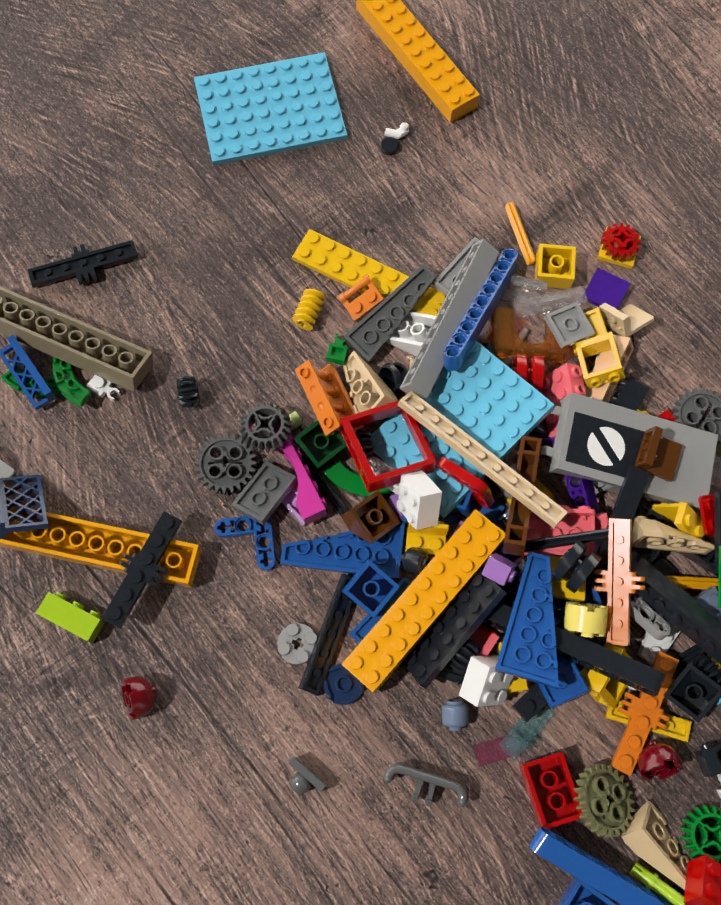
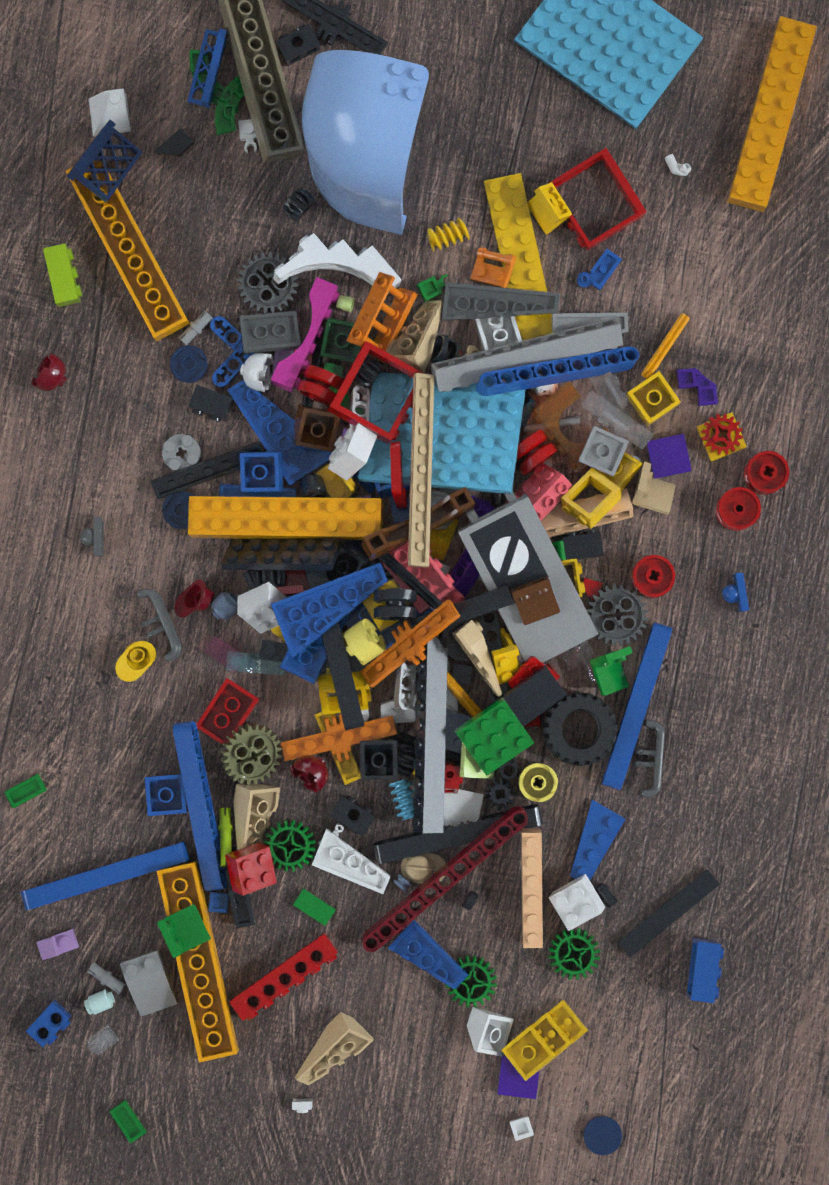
camera: 55 degrees right, 15 degrees up
(58, 446) = (175, 145): none -> black tile
(74, 289) = (293, 54): none -> black brick
(142, 570) = (135, 296): black hinge -> none
(186, 270) = (361, 132): none -> light blue panel
(209, 547) = (195, 327): none -> light grey pin
(232, 577) = (188, 364): none -> dark blue tile
(269, 417) = (323, 290): dark grey gear -> none
(277, 382) = (339, 257): none -> white arch
(279, 585) = (210, 403): none -> black brick
(286, 527) = (257, 371): none -> white cylinder
(342, 485) = (321, 384): none -> red wheel
(353, 227) = (548, 208): none -> yellow bracket
(378, 172) = (621, 183): none -> red window
(389, 146) = (657, 170): black tile -> none
(427, 736) = (194, 598): none -> dark red piece
(428, 231) = (600, 272): none -> blue hinge
(441, 834) = (135, 660): none -> yellow piece
(500, 569) = (348, 551): medium lavender brick -> none
(575, 232) = (694, 379): none -> dark purple tile
(673, 236) = (776, 467): none -> red wheel
(686, 273) = (727, 513): none -> red wheel
(693, 368) = (664, 575): none -> red wheel

